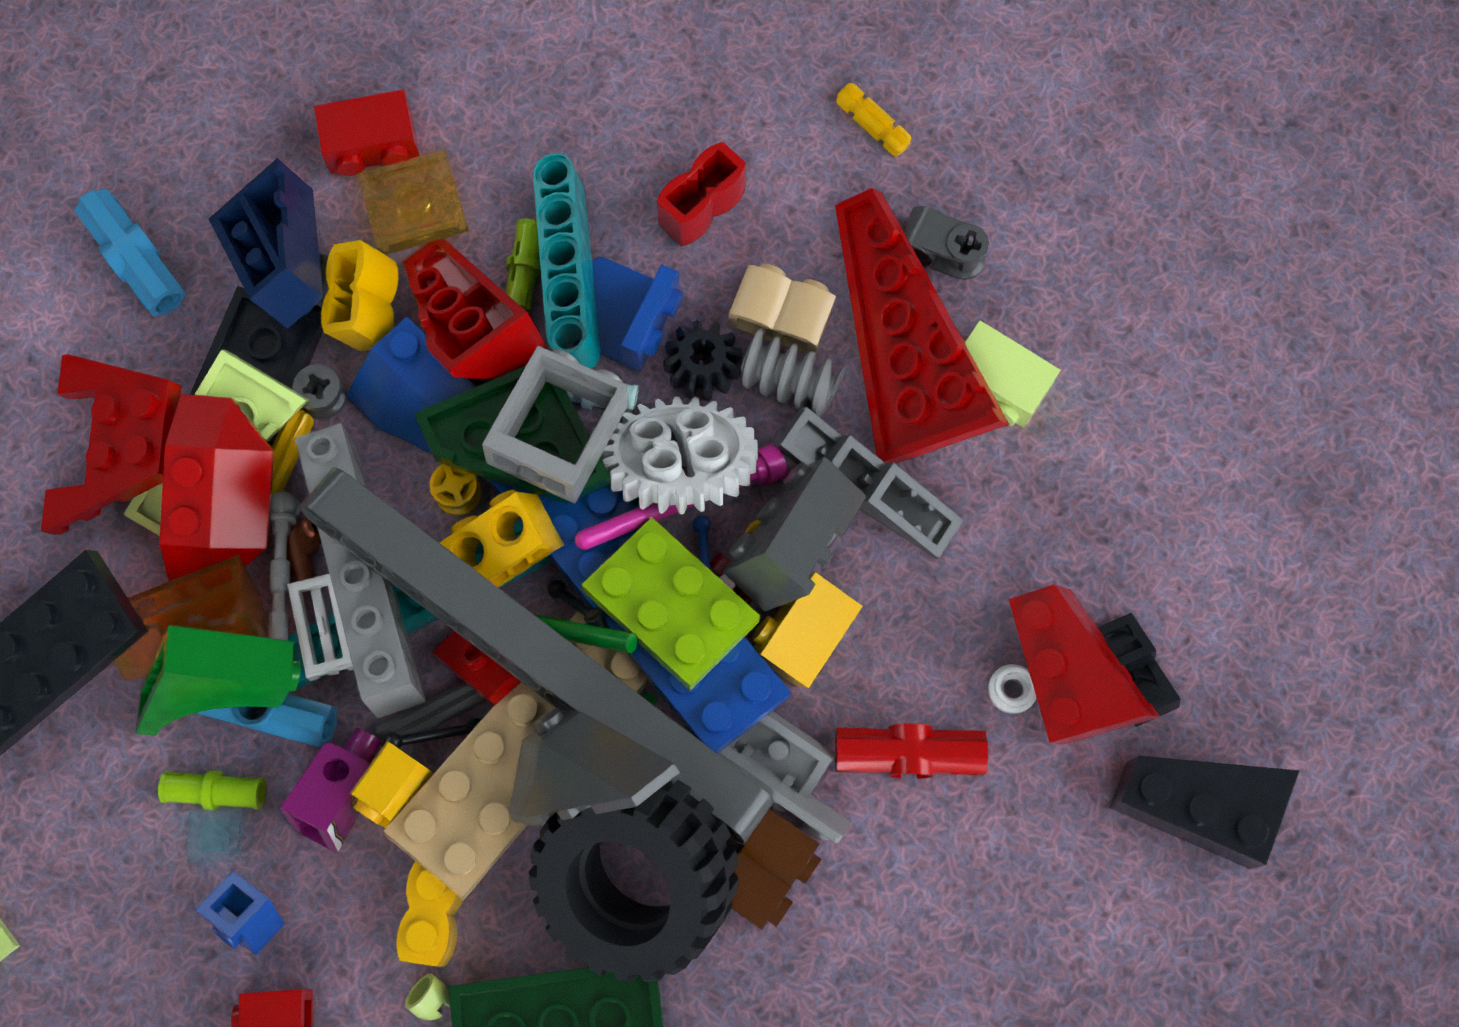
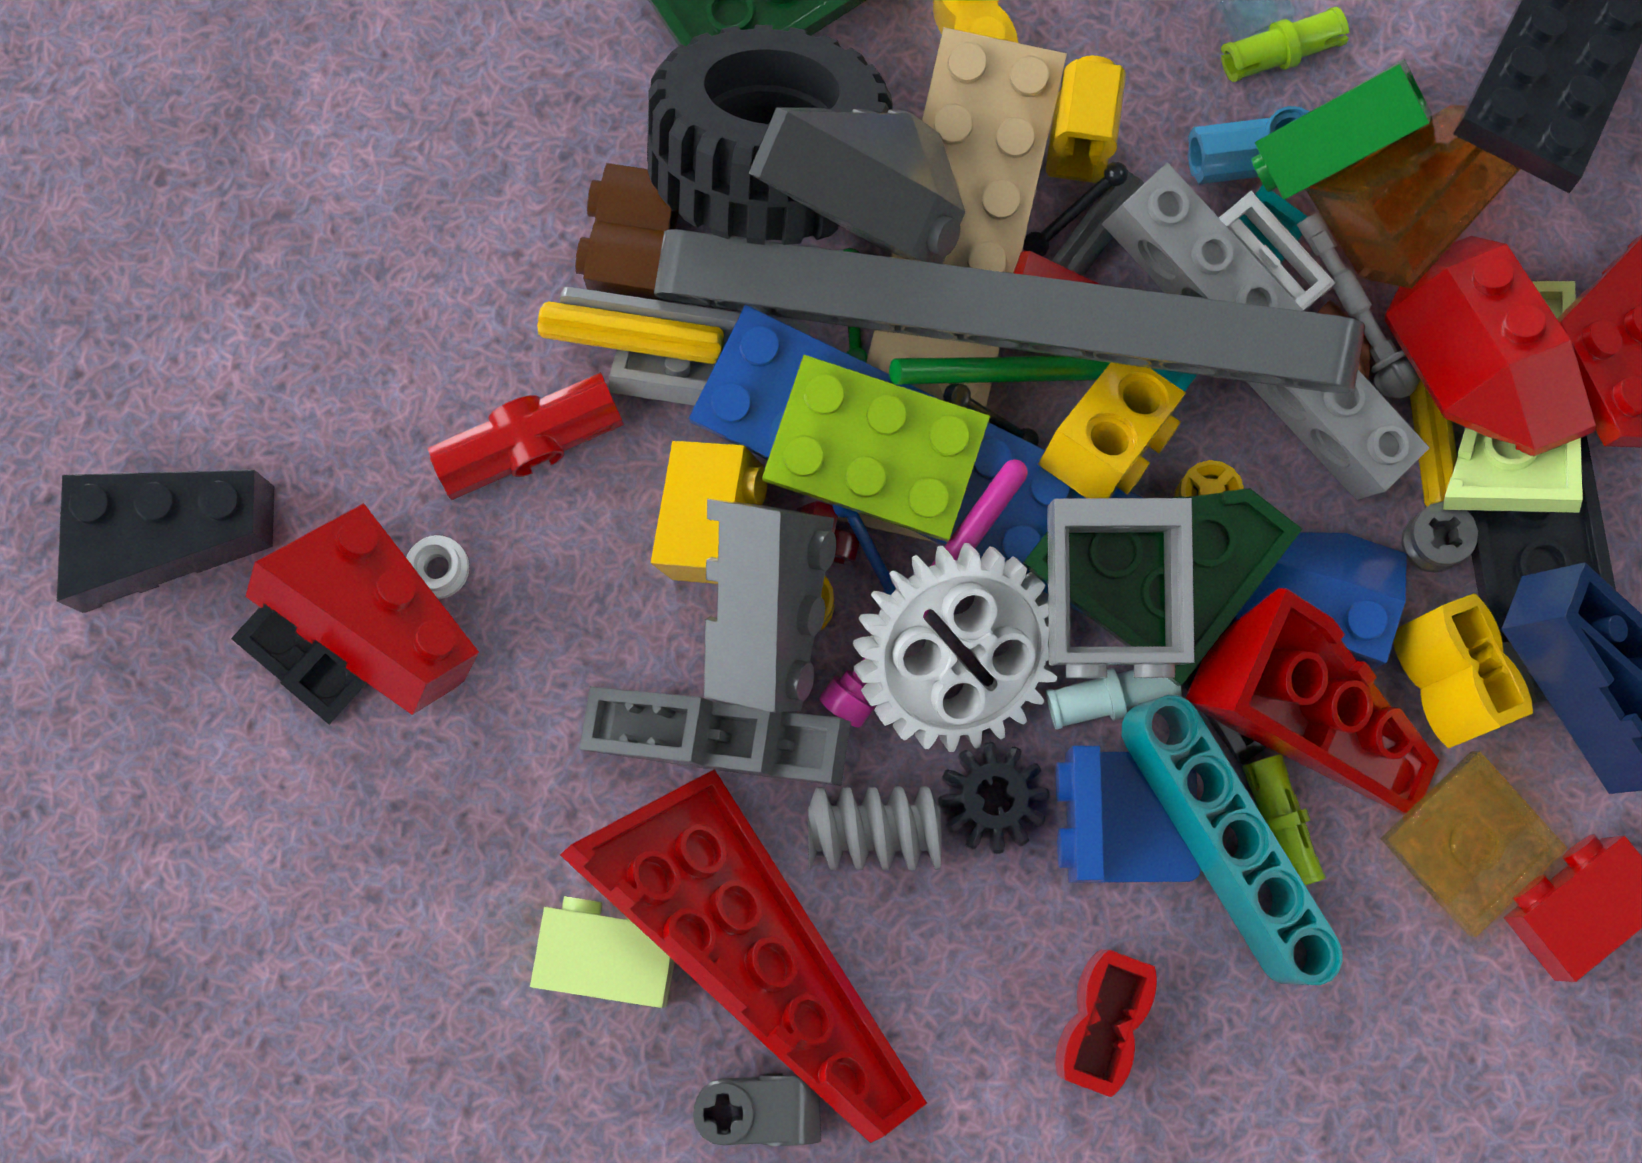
camera: 160 degrees right, 5 degrees up
(320, 804) = (1157, 72): magenta torso -> none
(781, 307) = (926, 915): tan brick -> none
(803, 785) = (630, 332): none -> yellow axle

